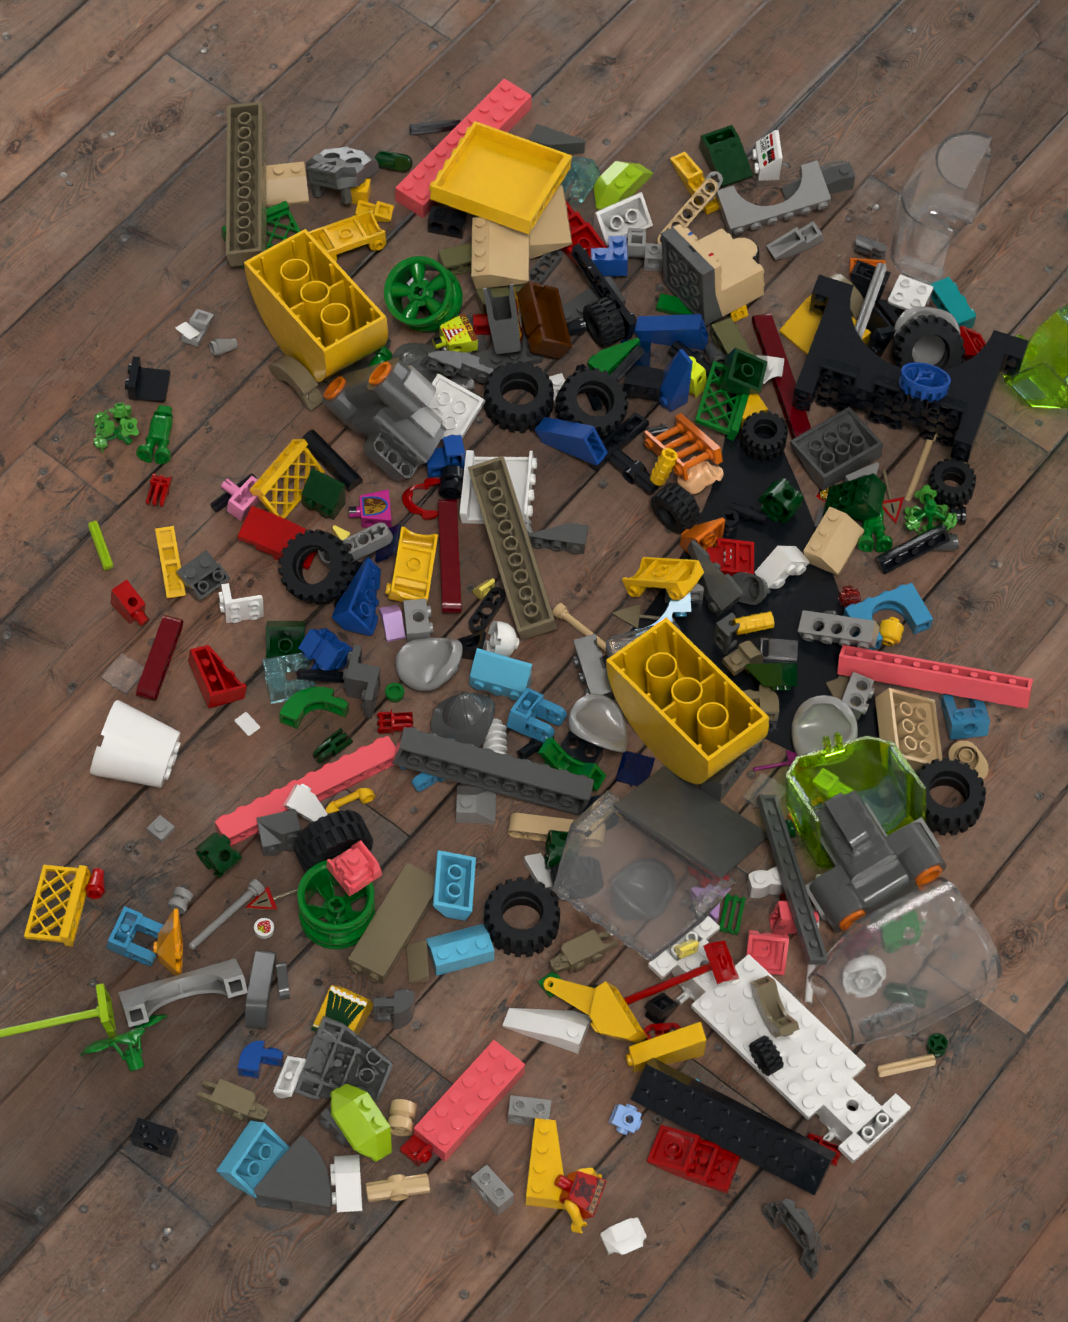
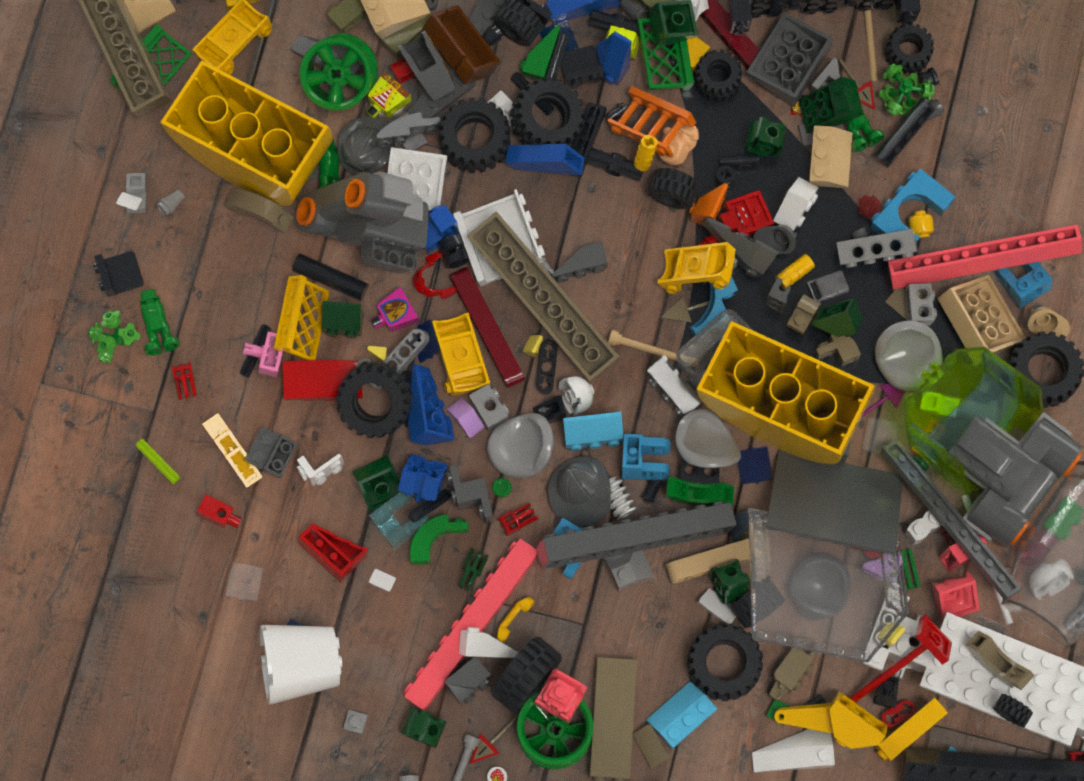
camera: 20 degrees left, 15 degrees up
(159, 658) = (270, 552): dark red beam -> none
(454, 885) = (651, 659): medium azure slope -> none

